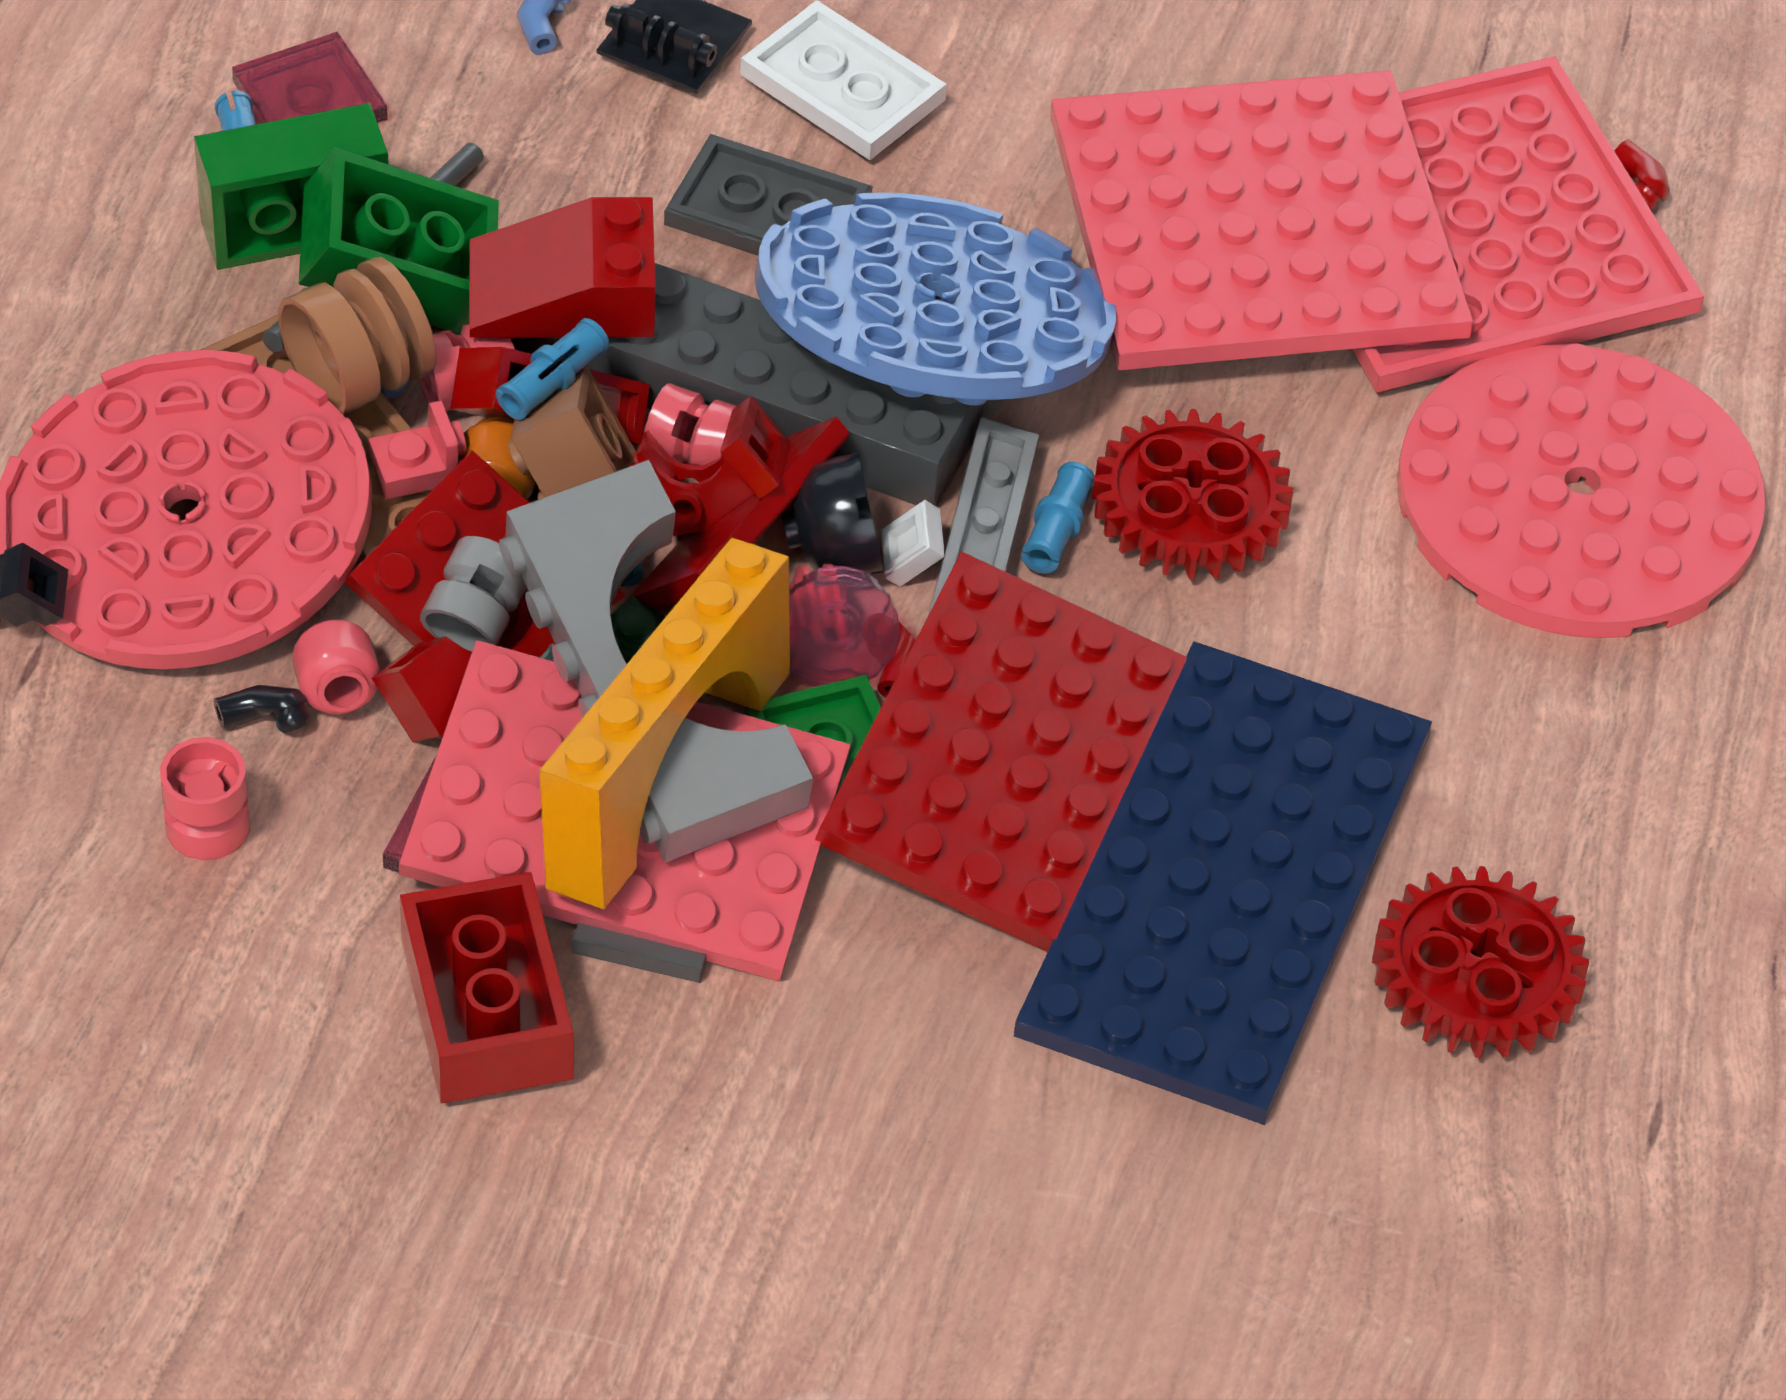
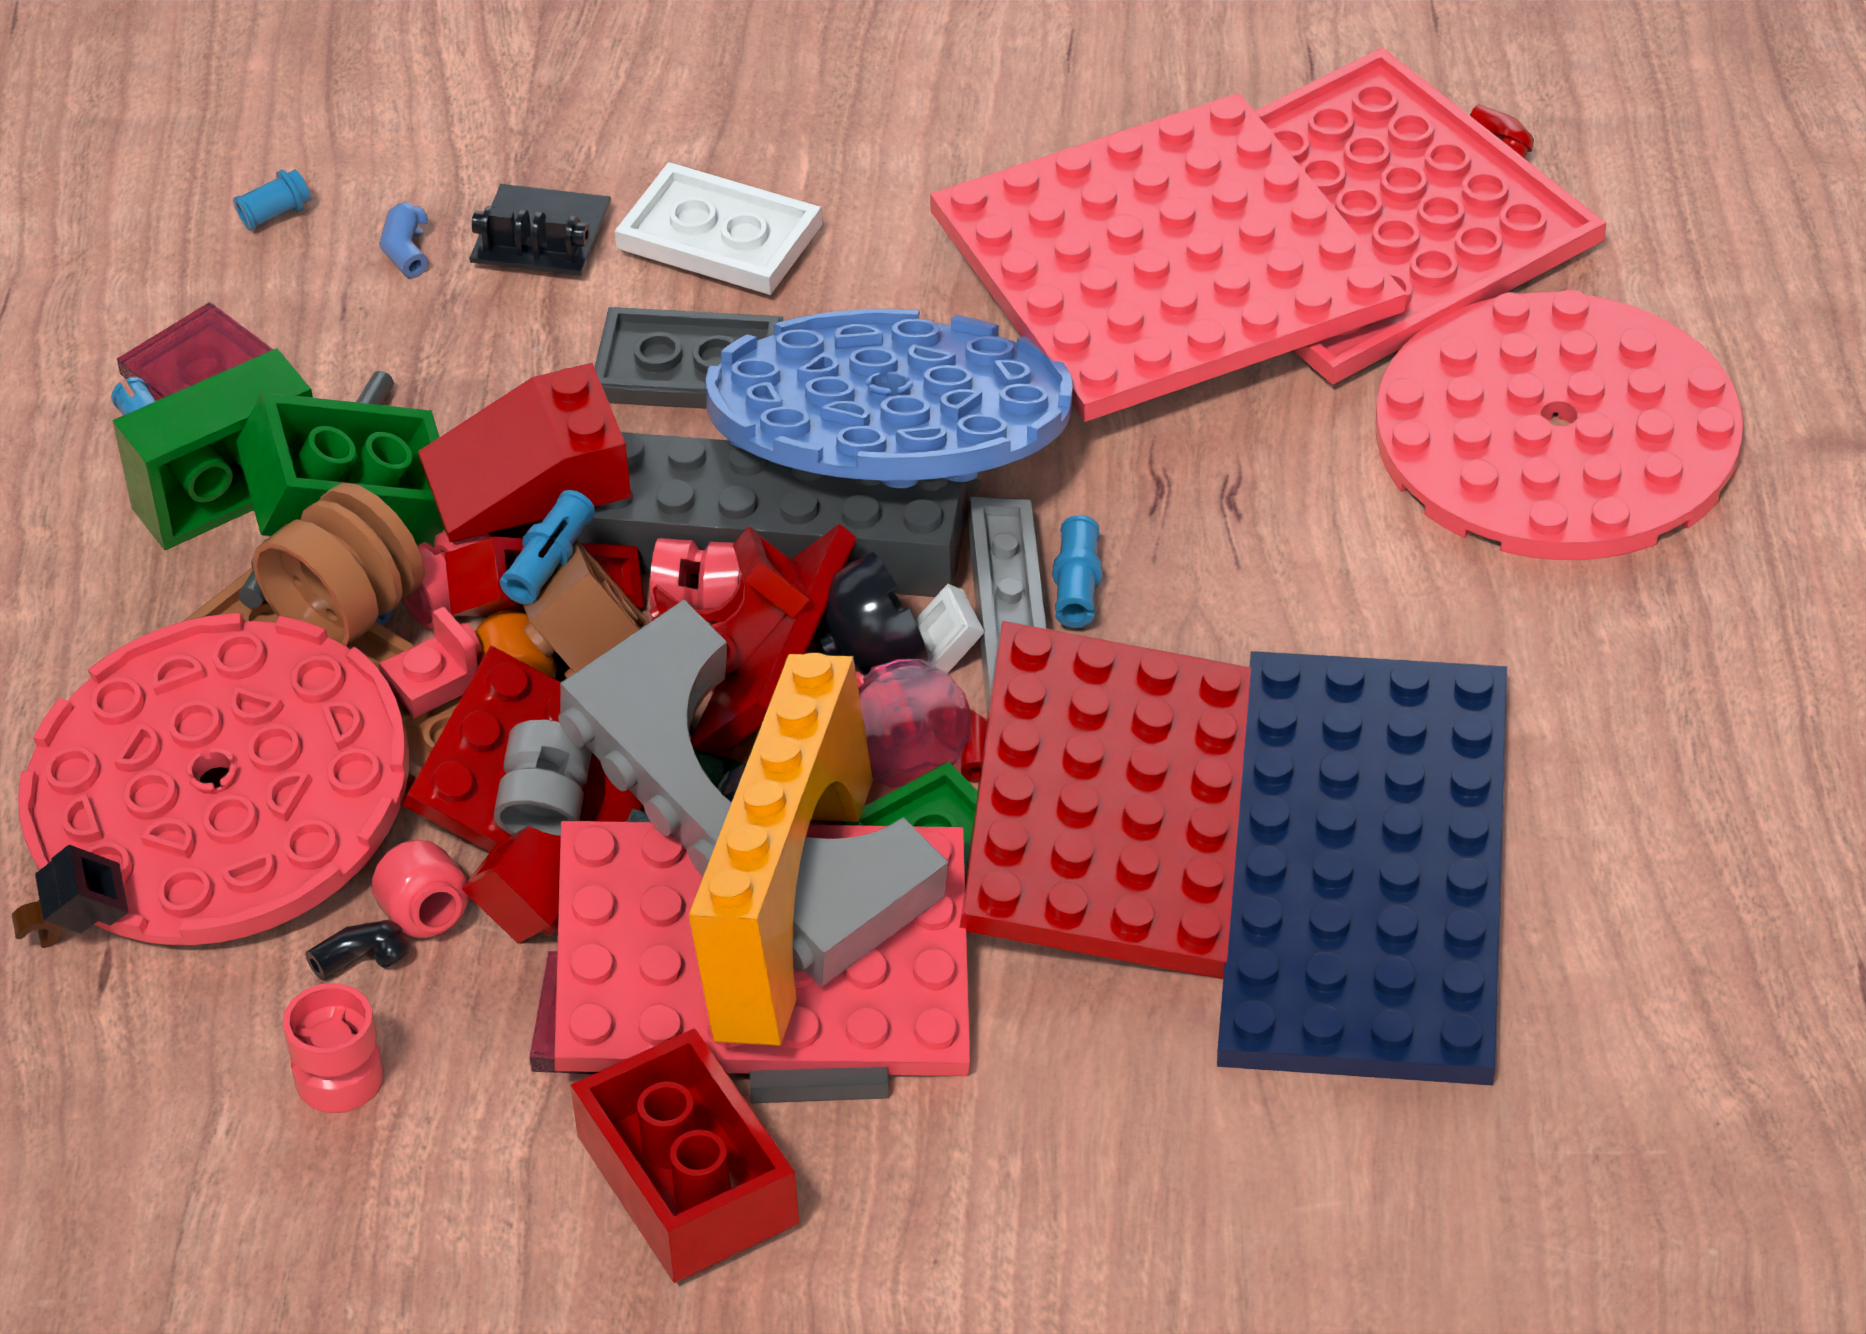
camera: 10 degrees left, 5 degrees down
(1192, 493) = (1197, 517): red gear -> none
(1480, 961) = (1642, 875): red gear -> none

